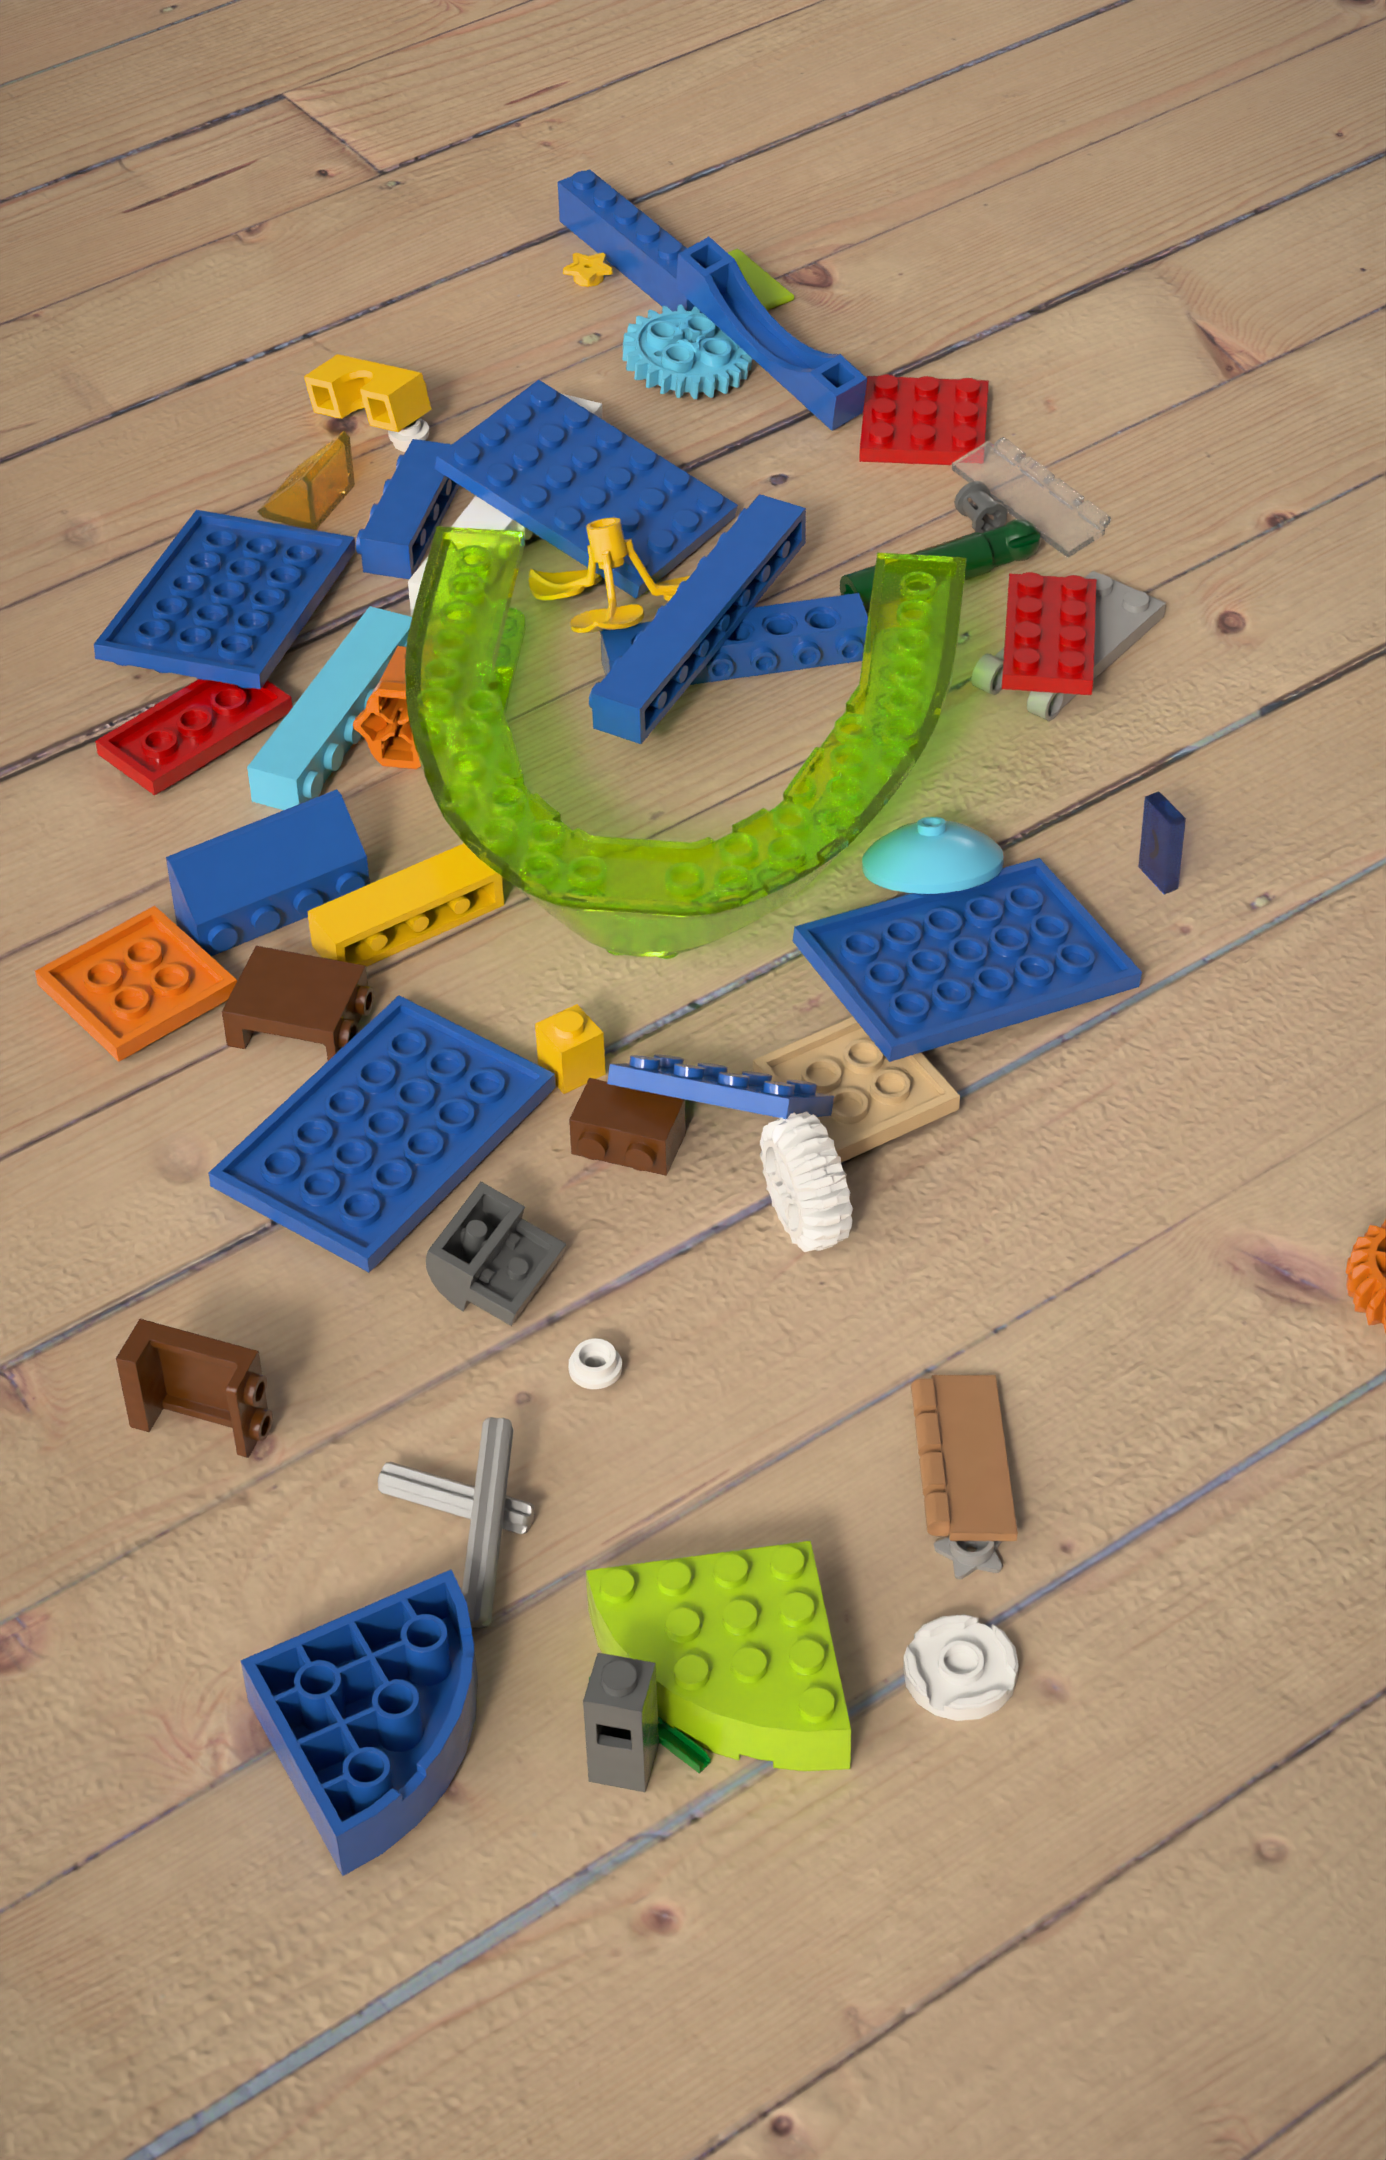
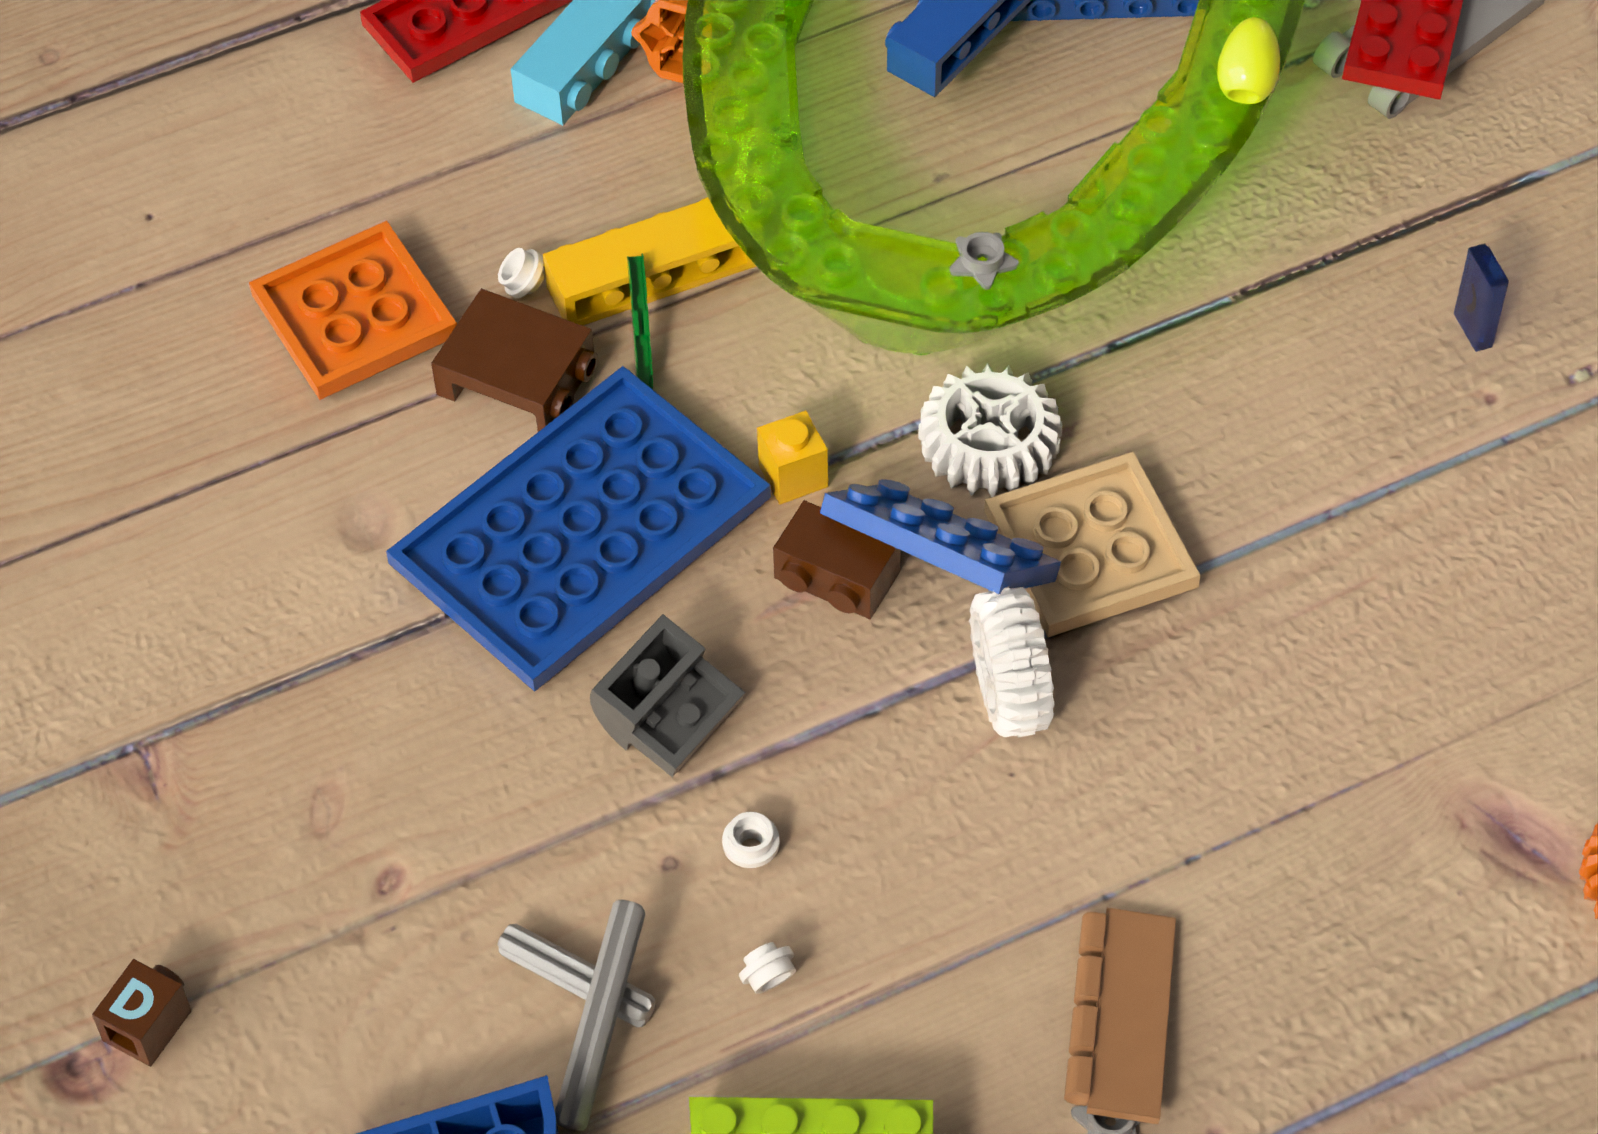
camera: 10 degrees right, 10 degrees up
(52, 1583) = (142, 1011): none -> reddish brown brick
(196, 1378) = (296, 783): reddish brown panel -> none
(266, 873) = (509, 198): blue slope -> none
(289, 931) = (521, 272): none -> white plate
(407, 952) = (640, 319): none -> green piece
(633, 1464) = (767, 967): none -> white plate
(717, 849) = (982, 245): none -> light grey plate
(745, 996) = (992, 414): none -> white gear
(923, 666) = (1249, 62): none -> neon yellow animal
(932, 858) = (1226, 280): medium azure dish -> none
(965, 959) = (1239, 408): blue plate -> none

